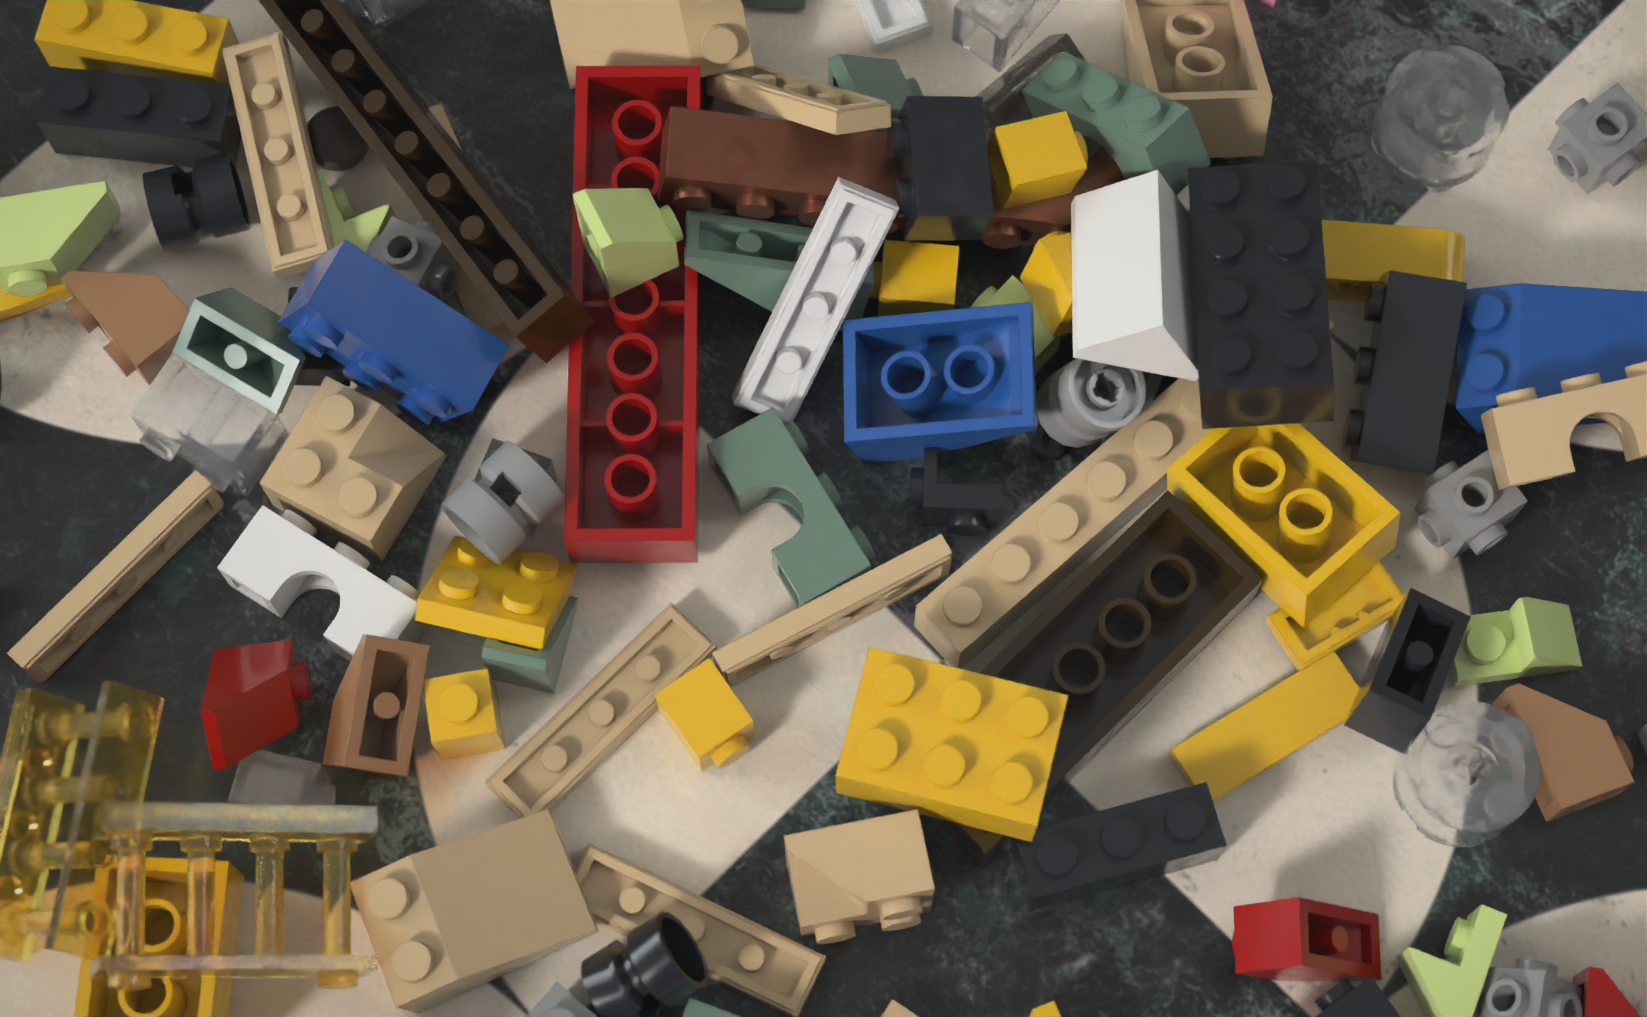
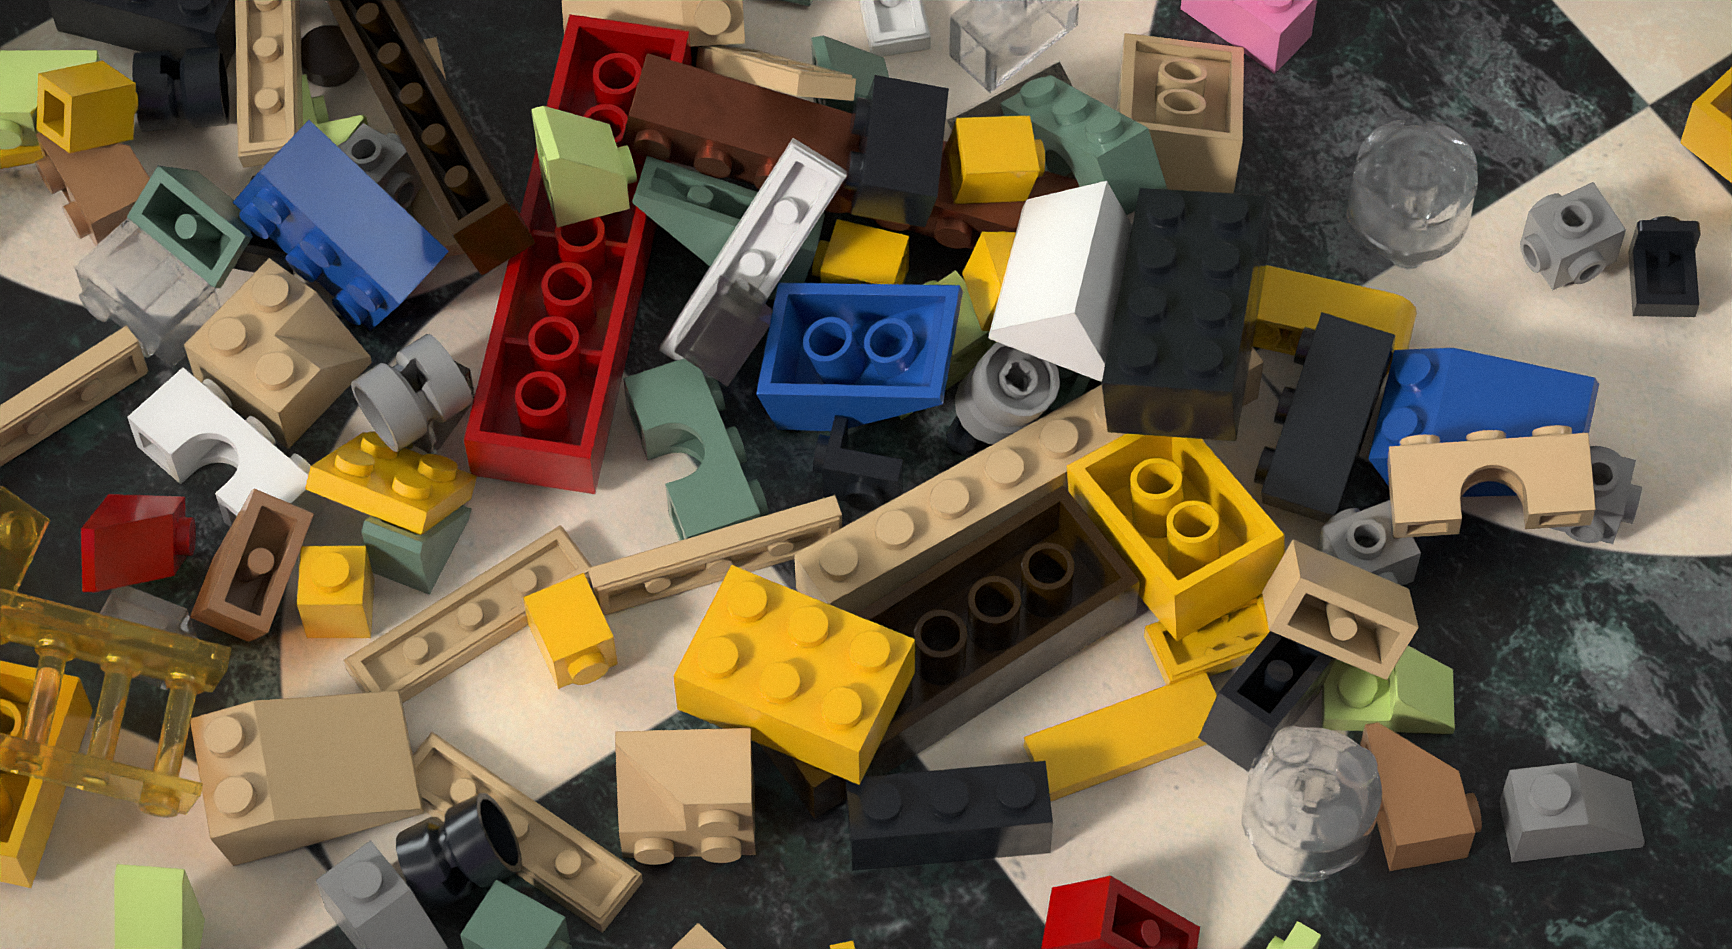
camera: 10 degrees right, 10 degrees down
(106, 243) = (86, 106): none -> yellow brick
(799, 379) = (724, 328): none -> clear smoke brick
(1466, 579) = (1339, 609): none -> tan brick

